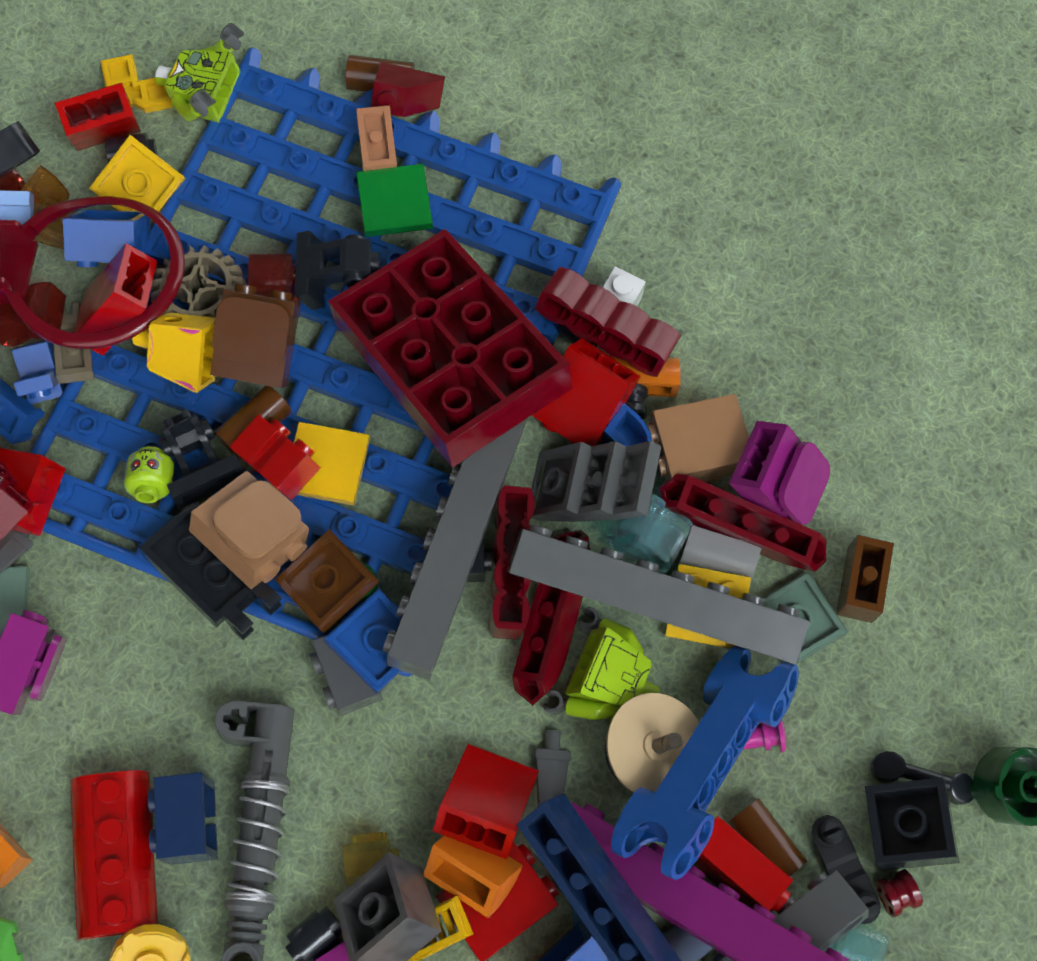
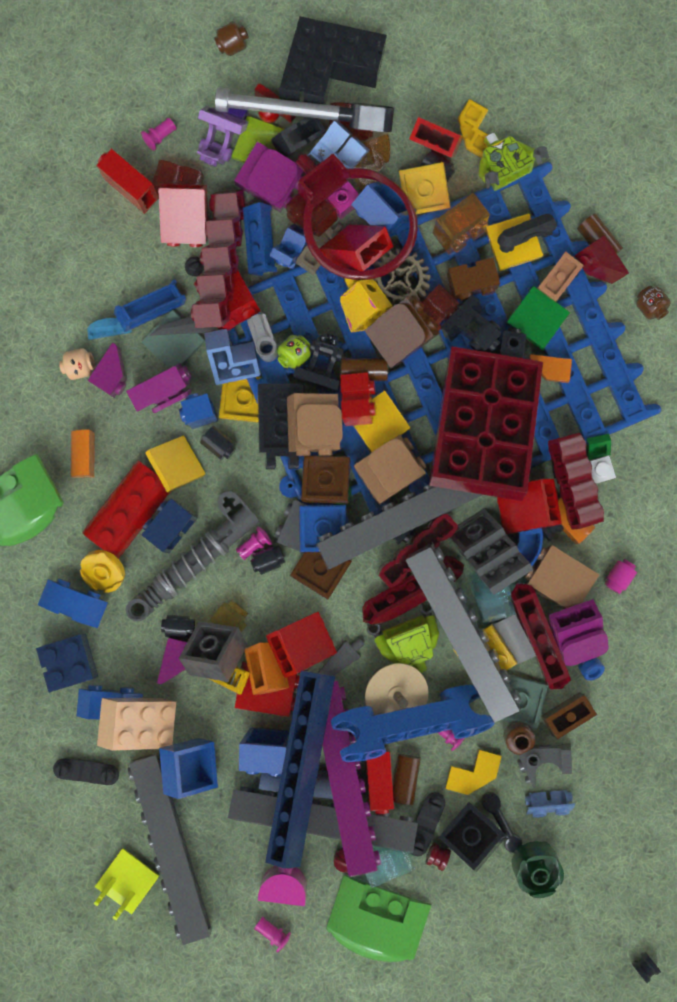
camera: 50 degrees right, 15 degrees up
(52, 267) = (342, 200): none -> dark pink brick
(73, 558) = (227, 359): none -> medium blue brick
(93, 649) = (198, 411): none -> blue brick
(95, 492) = (262, 336): none -> light grey piece
(122, 739) = (175, 463): none -> yellow tile
(134, 597) = (238, 402): none -> yellow tile
(156, 667) = (218, 443): none -> black brick
(212, 173) = (461, 223): none -> clear orange brick
(290, 212) = (474, 280): none -> reddish brown brick
(291, 149) = (521, 254): none -> yellow tile
(291, 644) = (284, 487): none -> blue tile
(302, 106) = (539, 226): none -> black piece
(312, 742) = (254, 543): none -> dark pink pin
(348, 745) = (267, 560): none -> black brick
(390, 499) = (390, 469): none -> medium nougat brick
(391, 242) = (512, 343): none -> black brick
(422, 705) = (314, 574): none -> reddish brown tile
(470, 231) = (554, 368): none -> orange tile
(500, 86) = (653, 303): none -> reddish brown head
(595, 268) = (598, 446): none -> green plate
(759, 381) = (621, 576): none -> dark pink brick
(833, 507) = (591, 669): none -> blue tile
(841, 658) = (519, 737): none -> reddish brown head
(844, 742) = (468, 781): none -> yellow tile
(904, 630) = (556, 754): none -> dark grey tile
(959, 691) = (540, 806): none -> medium blue hinge

